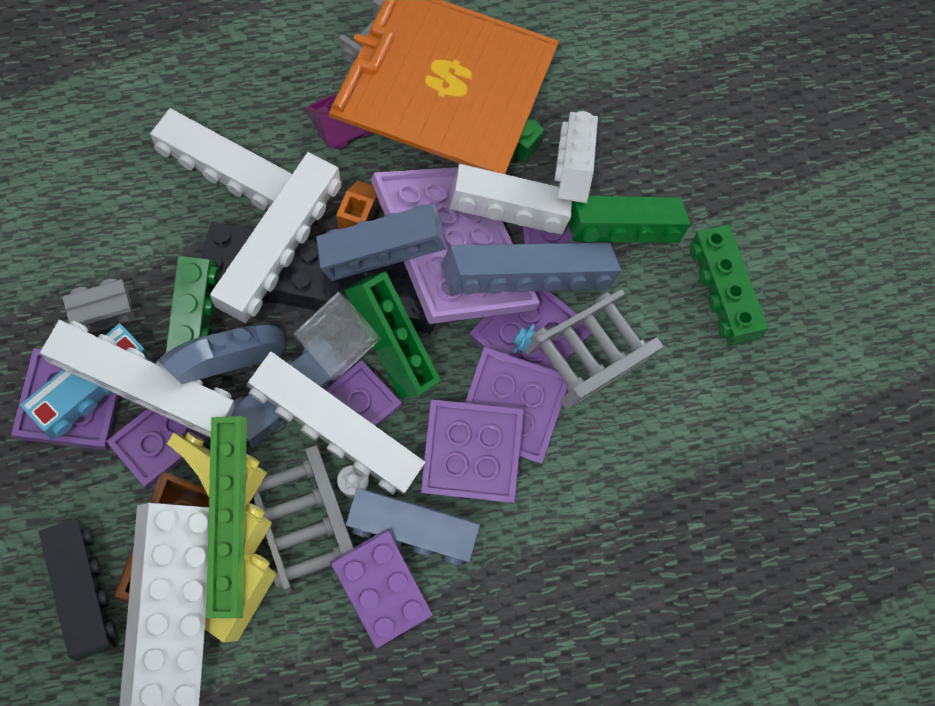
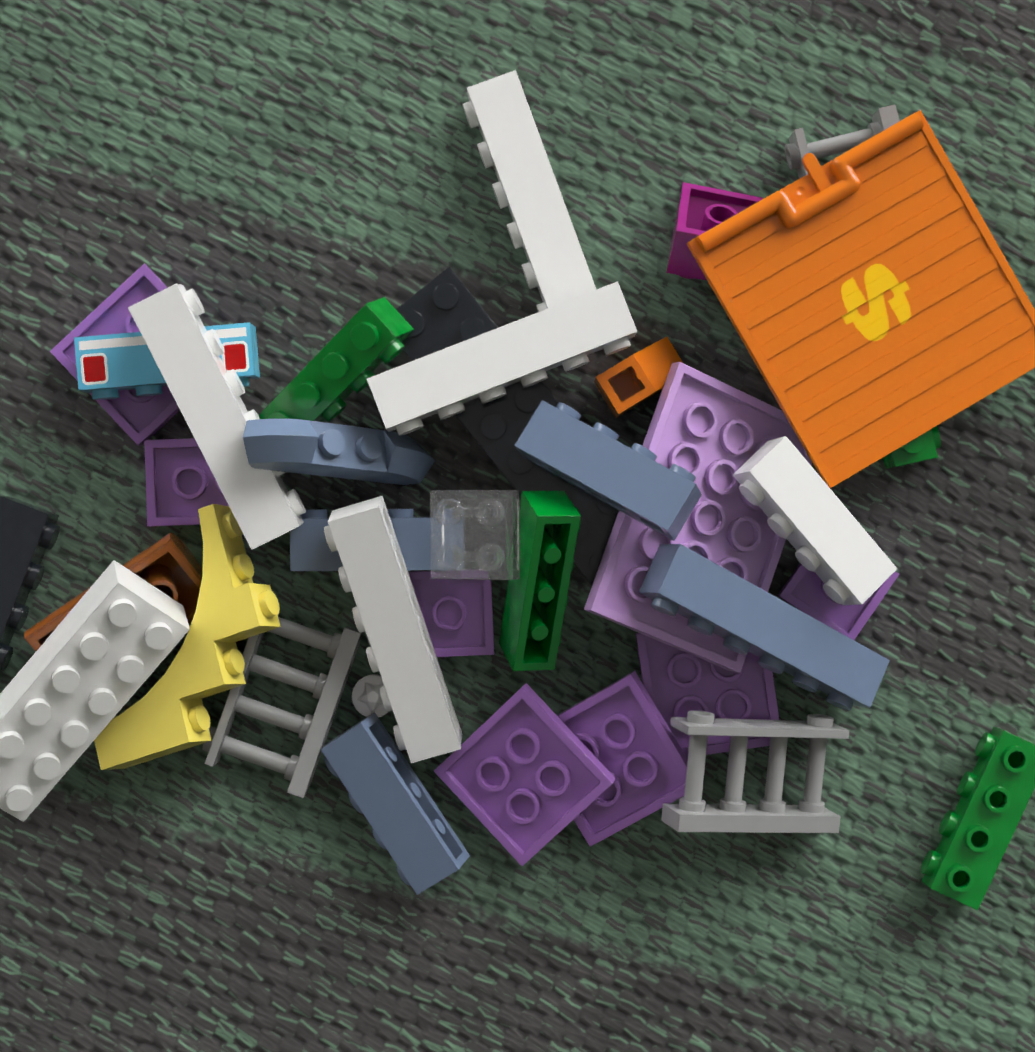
camera: 50 degrees right, 20 degrees up
(100, 306) = (251, 267): light grey brick -> none
(226, 517) = (195, 652): bright green plate -> none
(381, 588) = (306, 842): medium lavender plate -> none
(522, 338) = (687, 697): medium azure plate -> none
(576, 156) = (941, 531): white brick -> none
(628, 219) = (936, 650): green brick -> none

